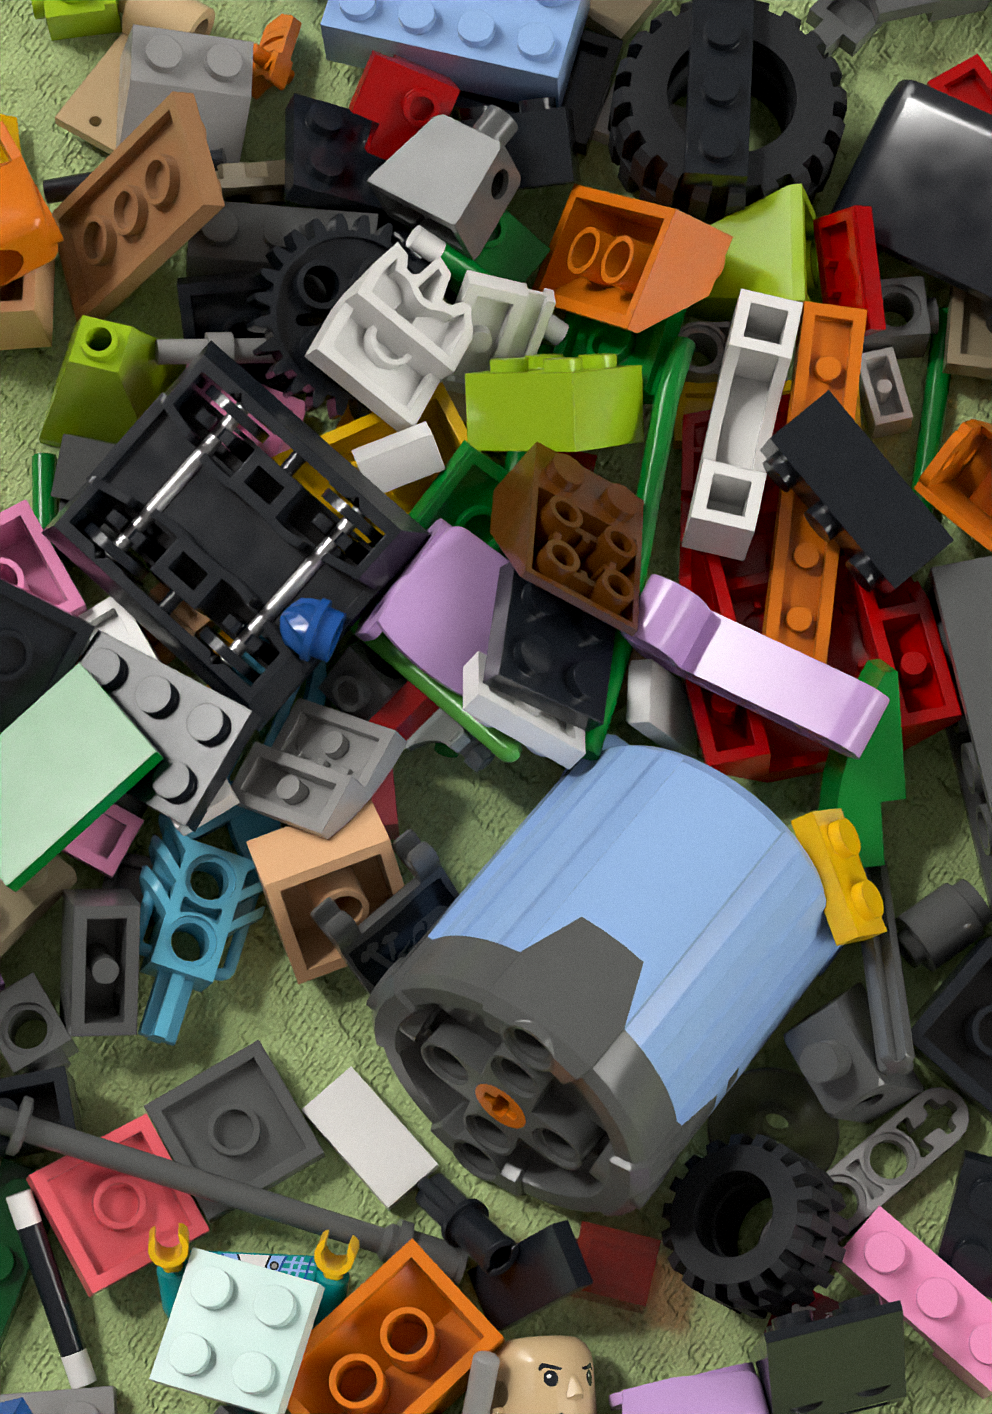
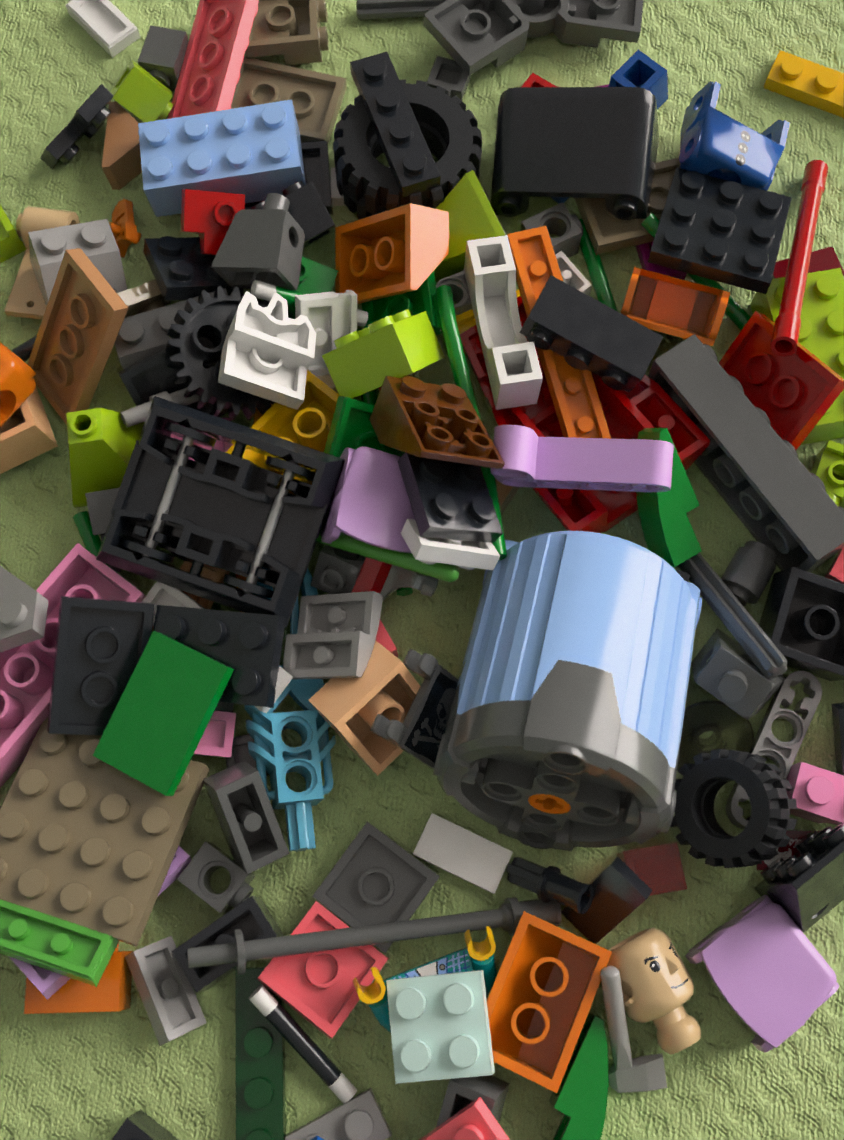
camera: 20 degrees left, 0 degrees up
(312, 628) = (294, 547): blue plate -> none
(400, 458) = (304, 421): white piece -> none
(660, 707) = (525, 510): white tile -> none
(850, 263) = (518, 204): red plate -> none
(852, 900) = (702, 580): yellow plate -> none

